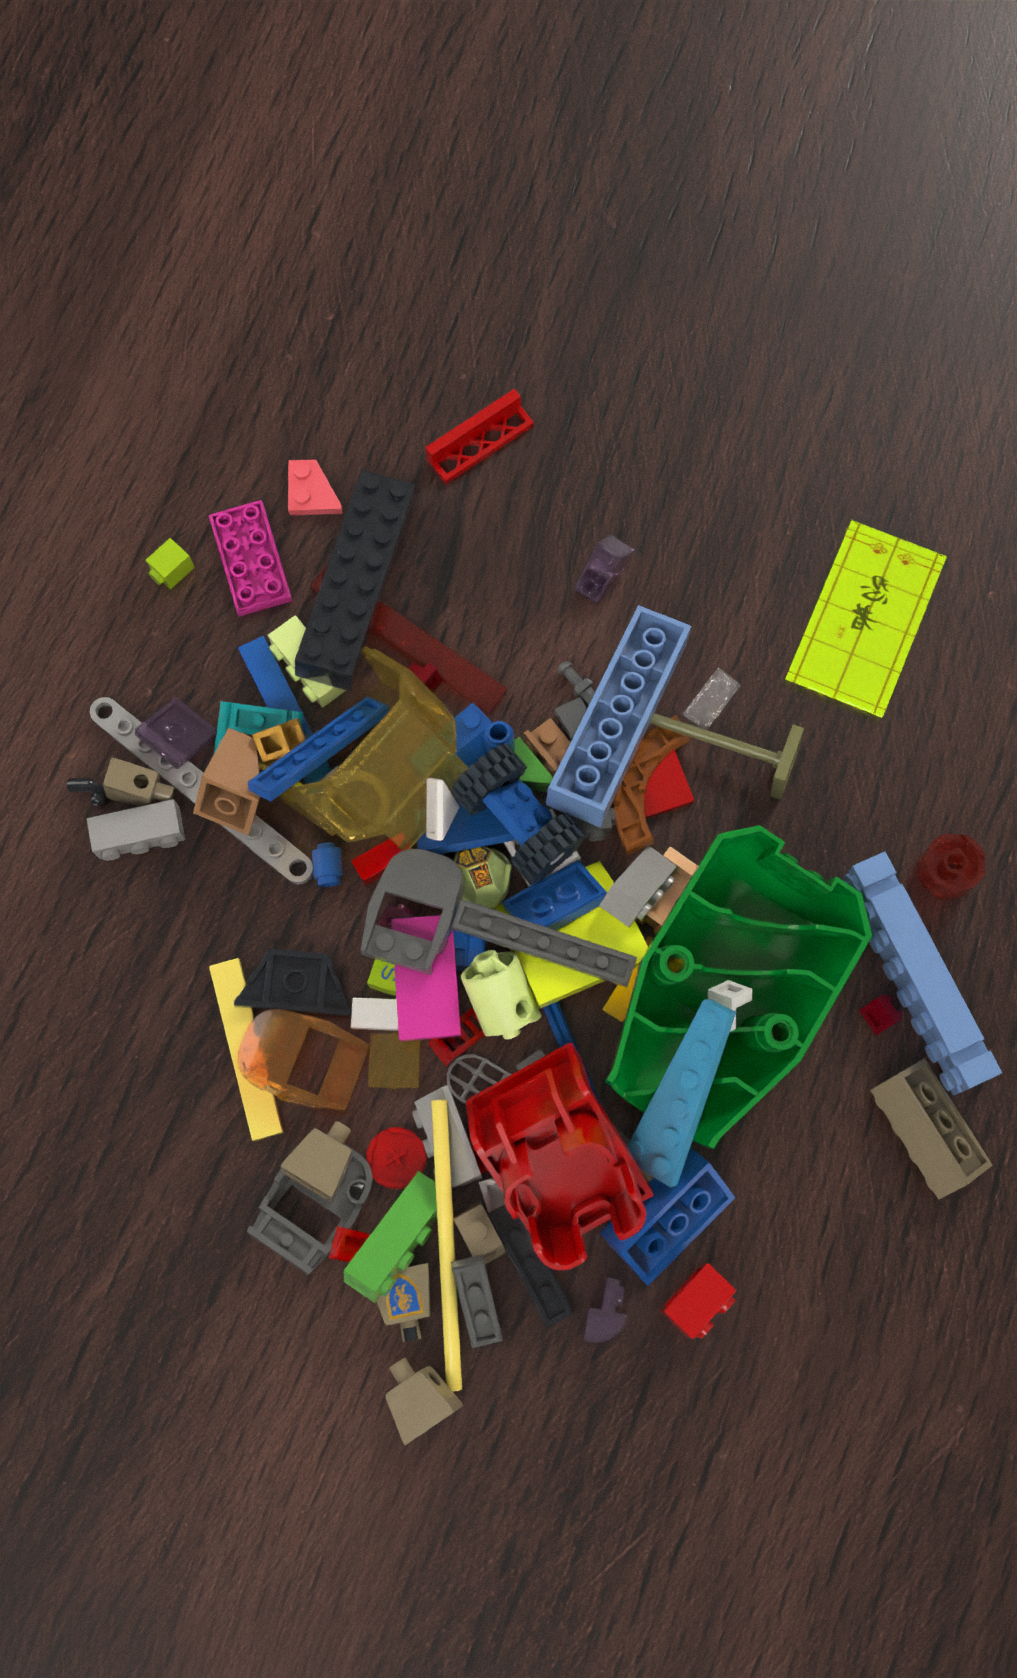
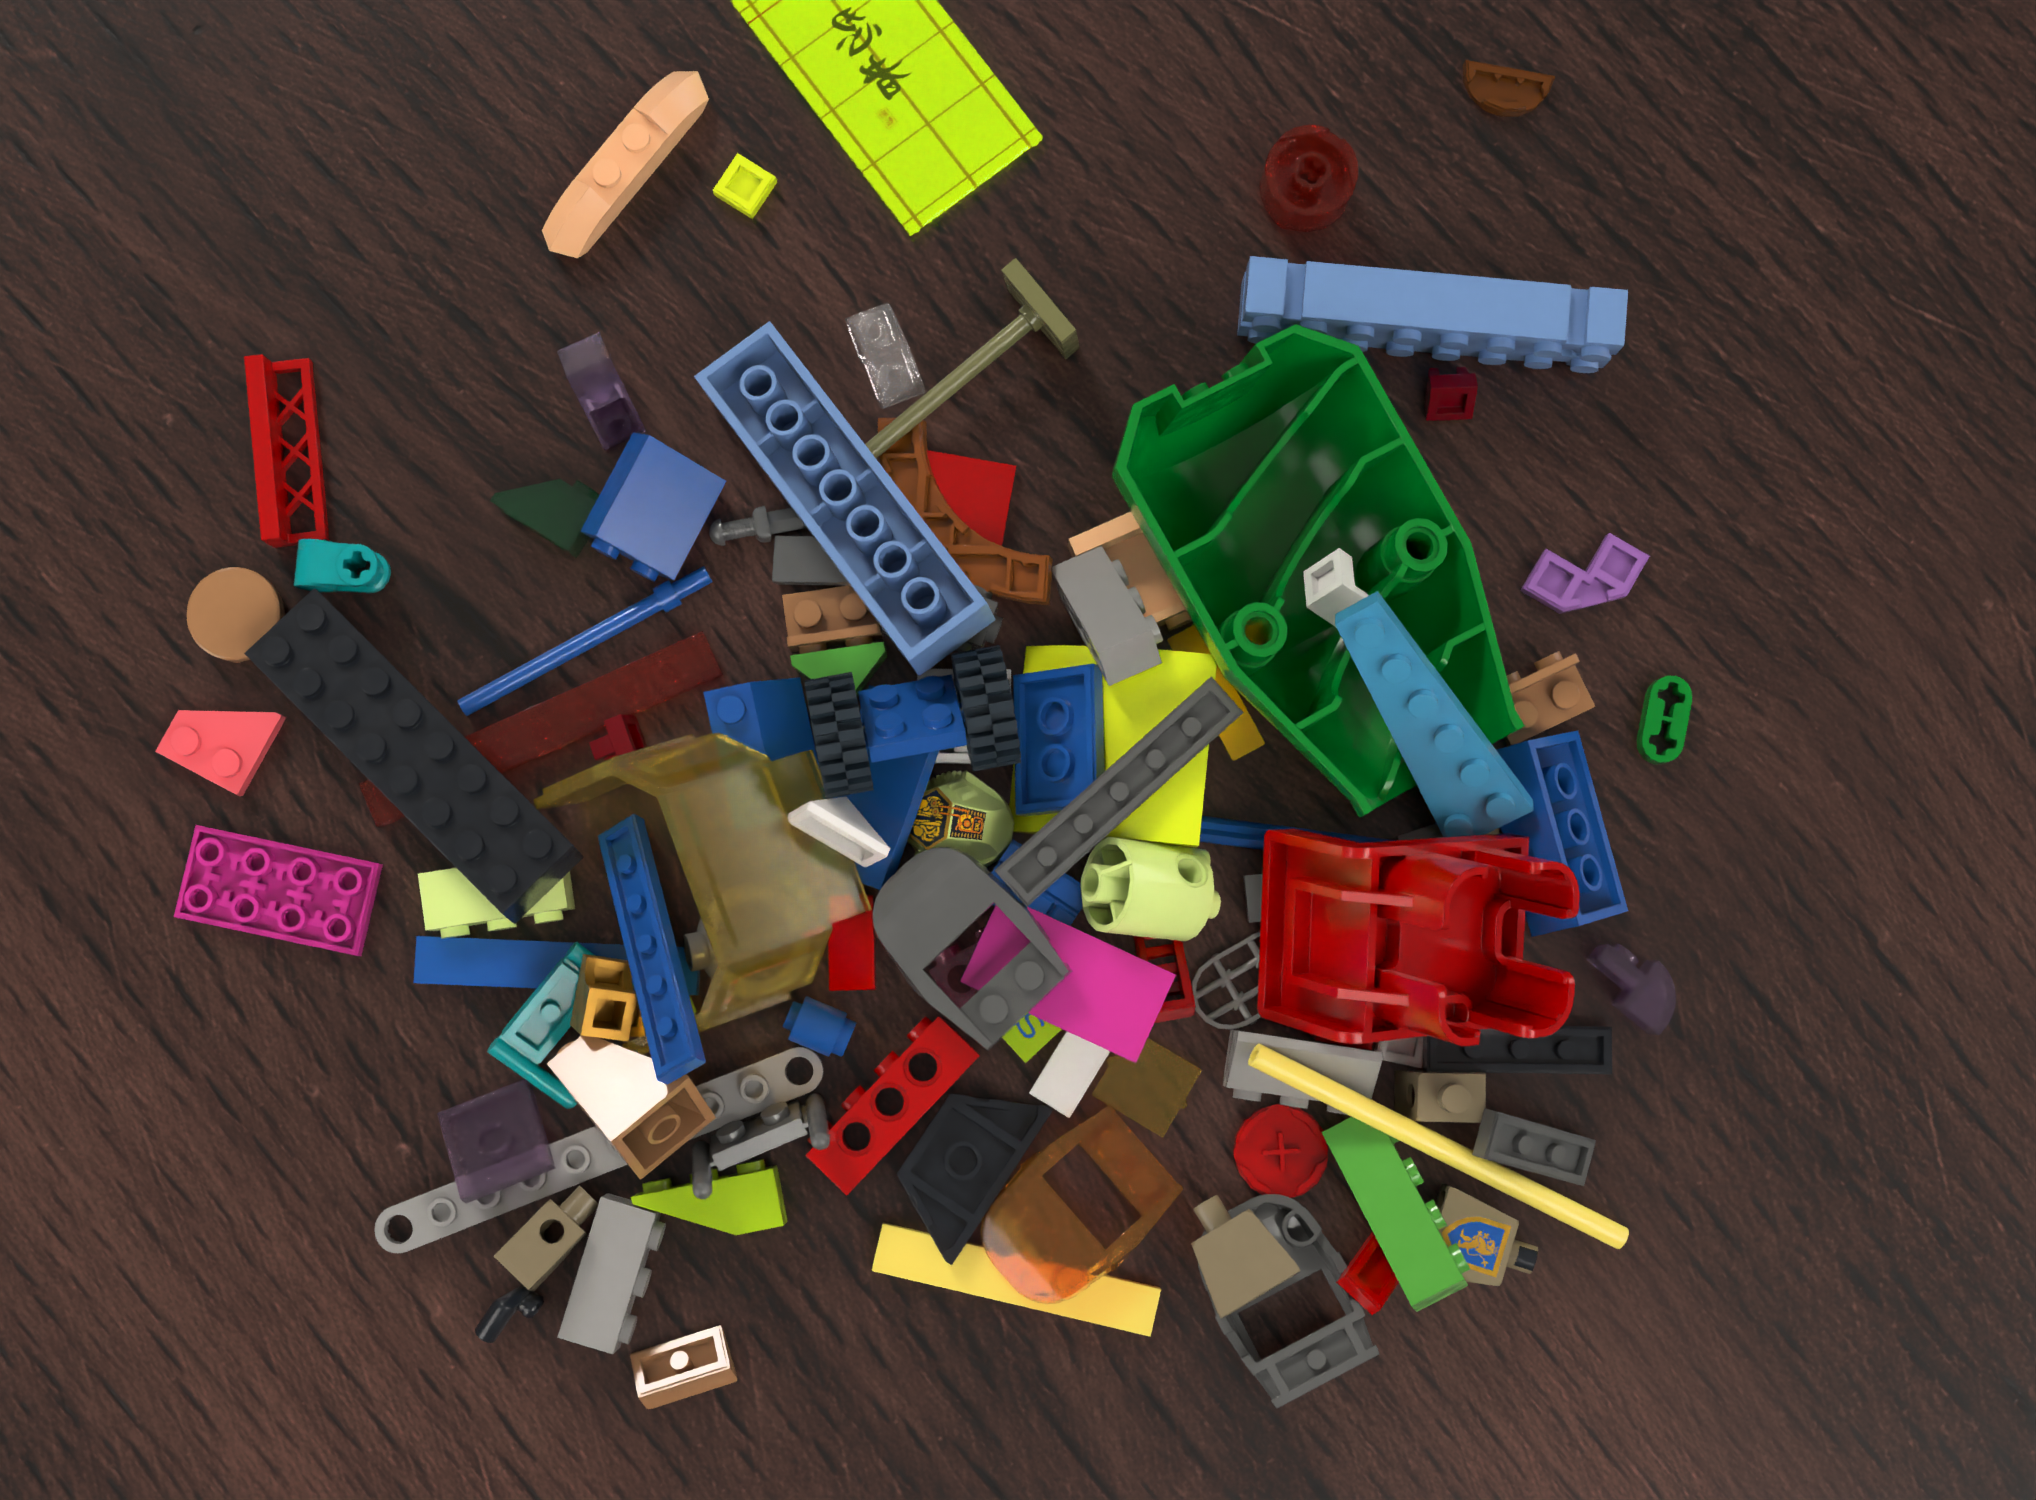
camera: 65 degrees left, 10 degrees up
(104, 897) = (683, 1367): none -> medium nougat slope
(169, 564) = (221, 1016): lime brick -> none
(205, 869) = (737, 1205): none -> lime slope
(243, 857) = (747, 1139): none -> dark grey plate
(263, 907) = (953, 1056): none -> red brick
(382, 455) = (232, 612): none -> medium nougat tile
(419, 1400) = (1617, 1292): dark tan torso -> none
(433, 492) = (334, 567): none -> teal piece
(497, 734) = (783, 686): blue brick -> none
(513, 660) = (665, 596): none -> blue bar
(526, 581) = (551, 511): none -> clear green slope
(556, 624) = (652, 507): none -> brick
(699, 1301) = (1692, 859): red brick -> none
(731, 515) = (624, 163): none -> light nougat brick
(741, 1163) = (1548, 696): none -> medium nougat bracket
(757, 580) = (744, 186): none -> neon yellow tile
(774, 1252) = (1675, 721): none -> green beam
(813, 1145) = (1569, 588): none -> medium lavender tile
(931, 1129) = (1633, 423): dark tan slope -> none

